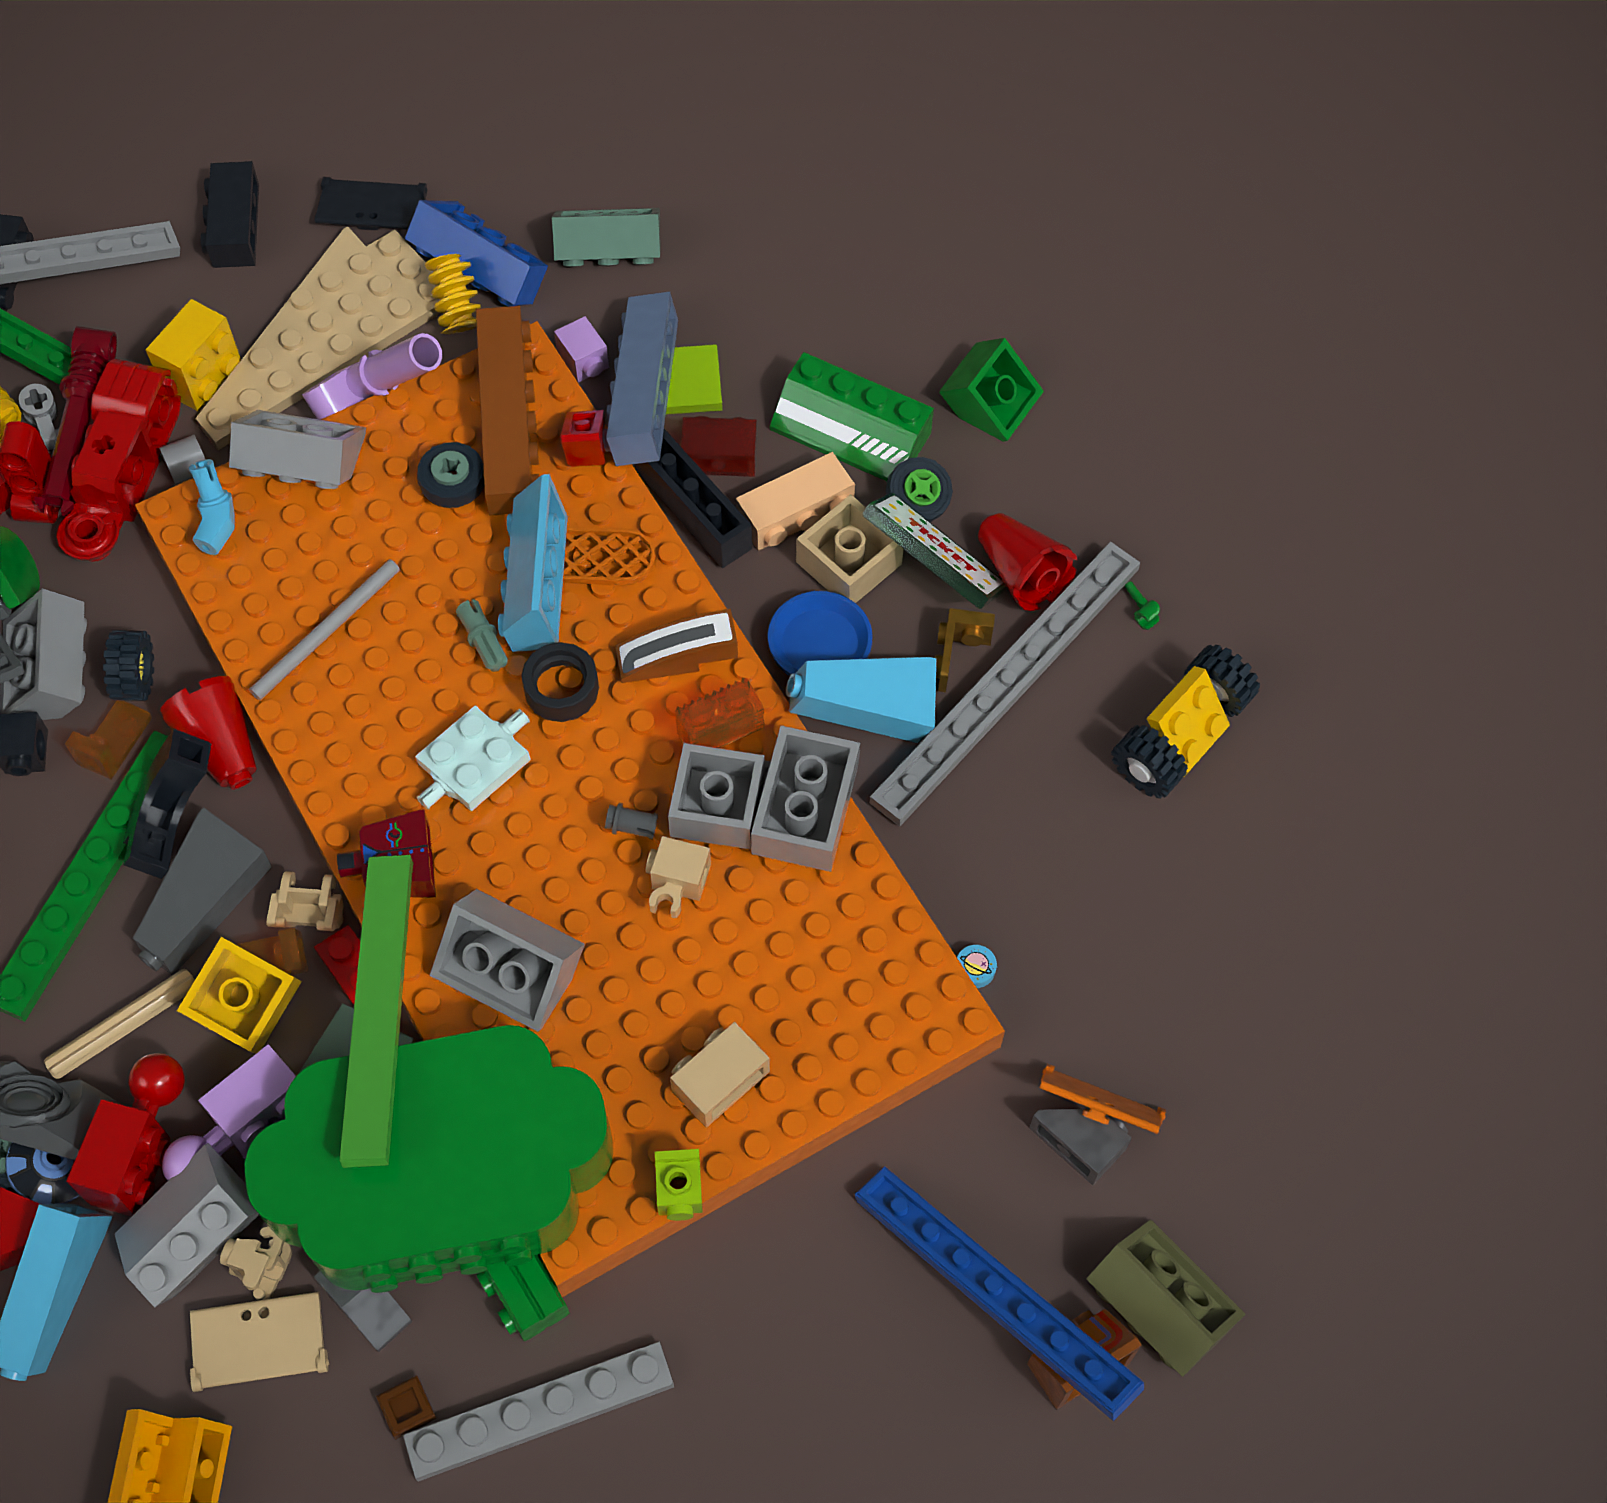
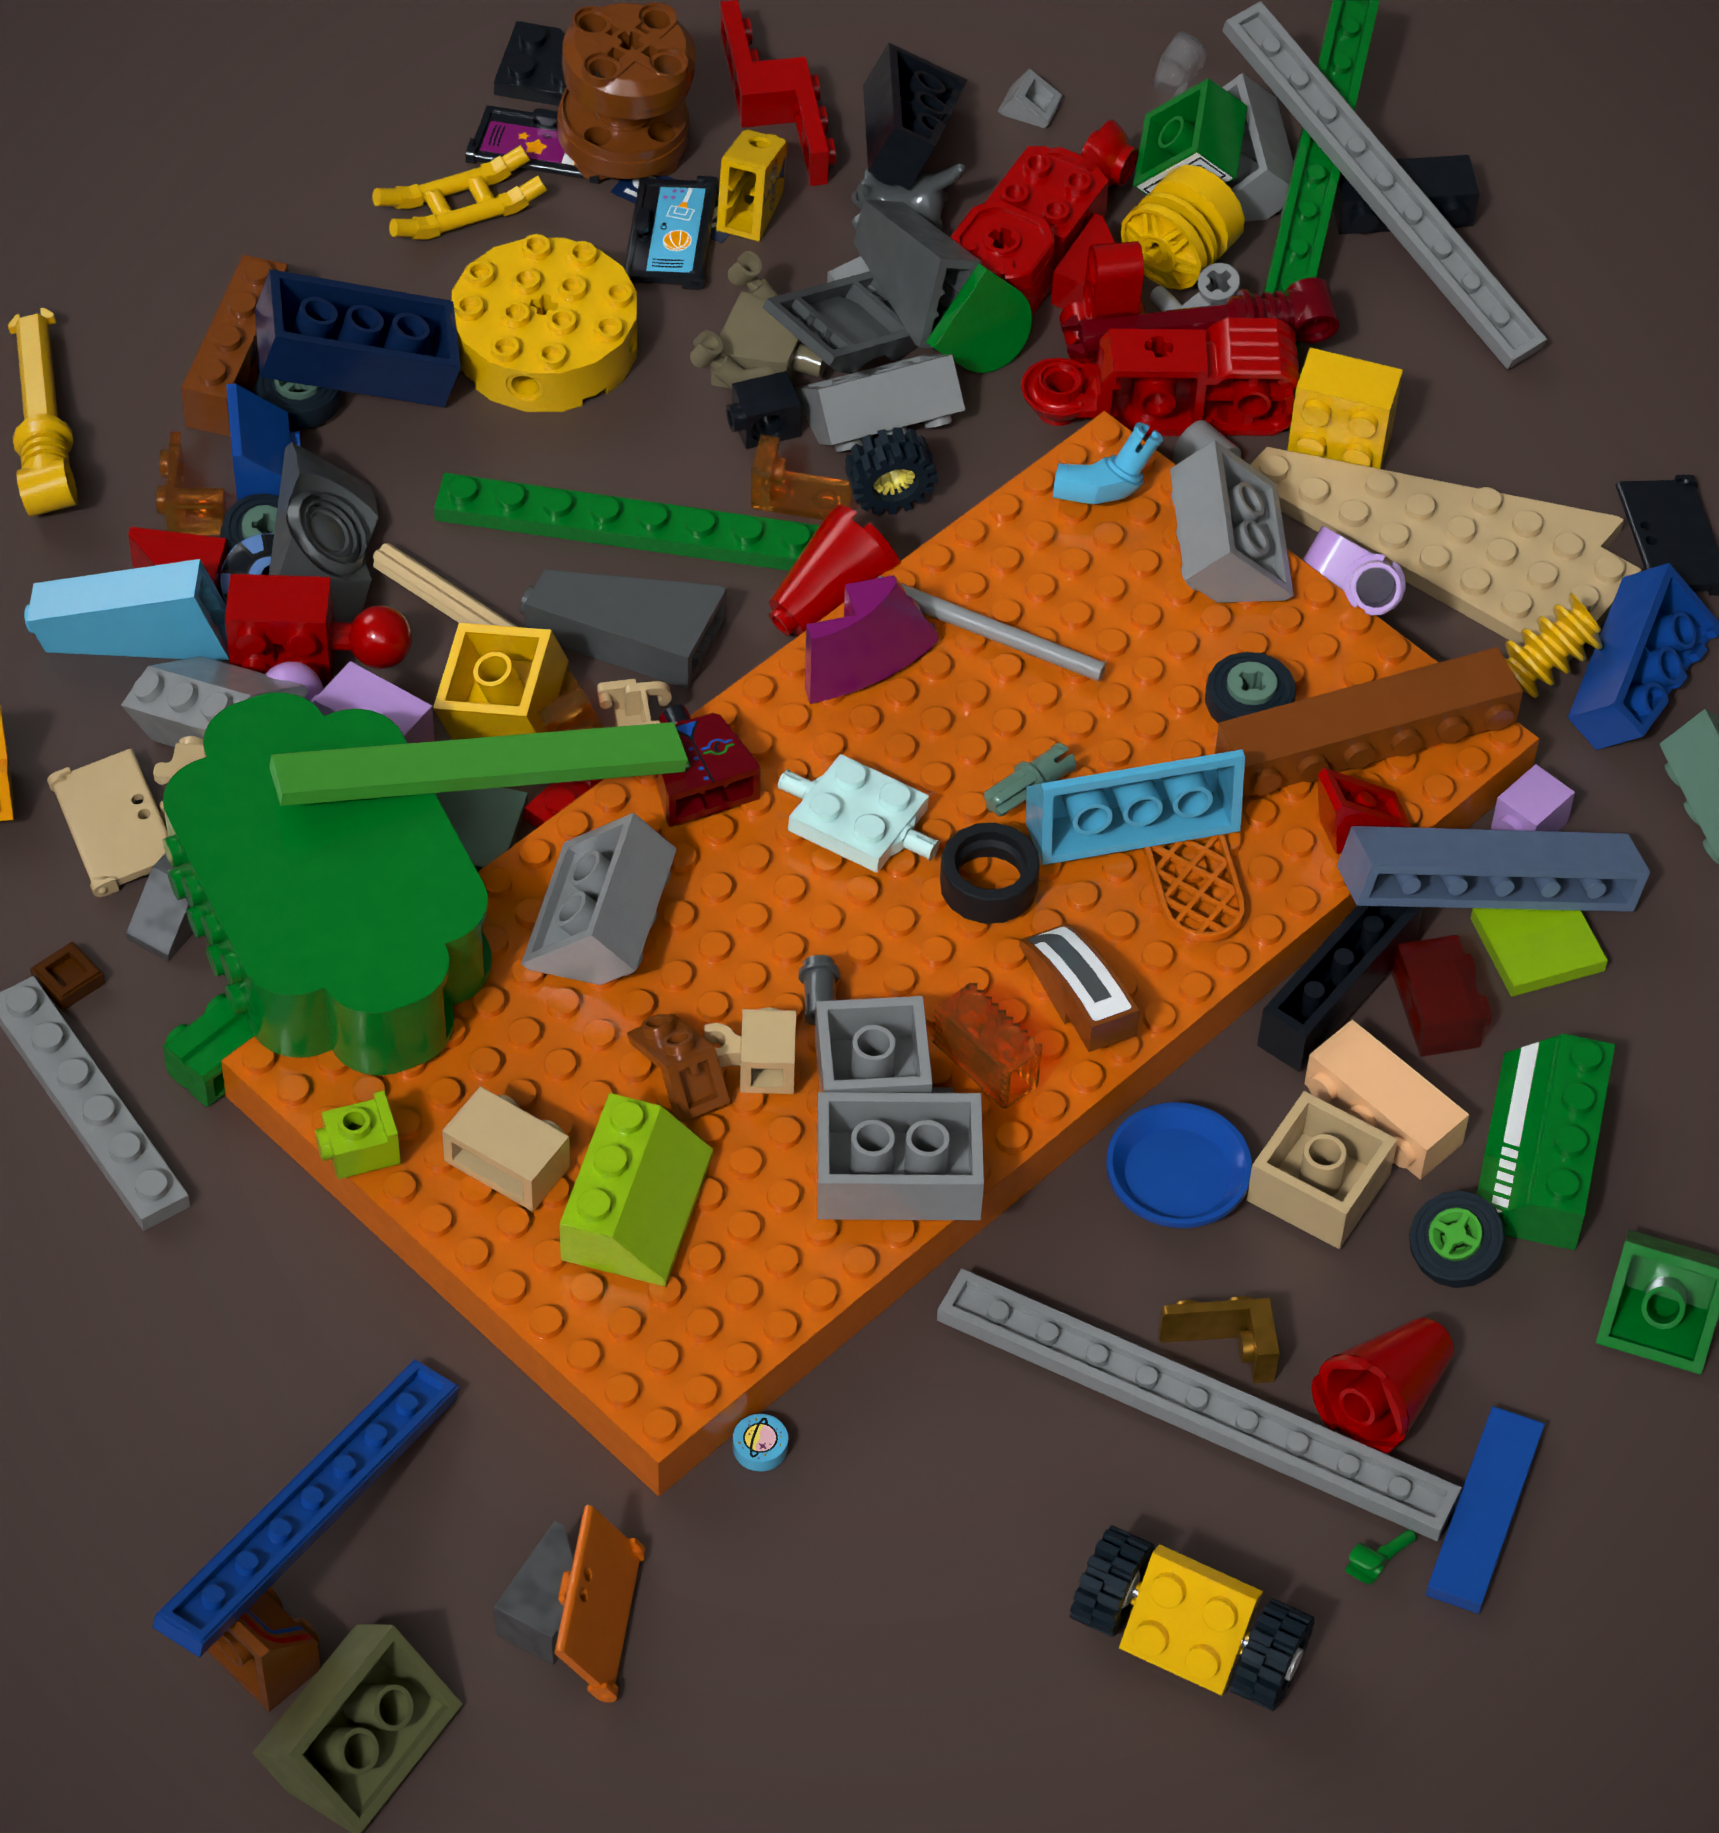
camera: 75 degrees right, 10 degrees down
(161, 801) = (716, 551): black arch -> none
(231, 214) = (1587, 398): black brick -> none
(315, 697) = (871, 642): none -> magenta slope
(668, 929) = (686, 1063): none -> dark orange bracket
(781, 993) = (634, 1192): none -> lime slope
(868, 694) = (1102, 1230): medium azure slope -> none
(934, 550) = (1352, 1255): tile -> none
(1102, 524) = (1485, 1510): none -> blue tile

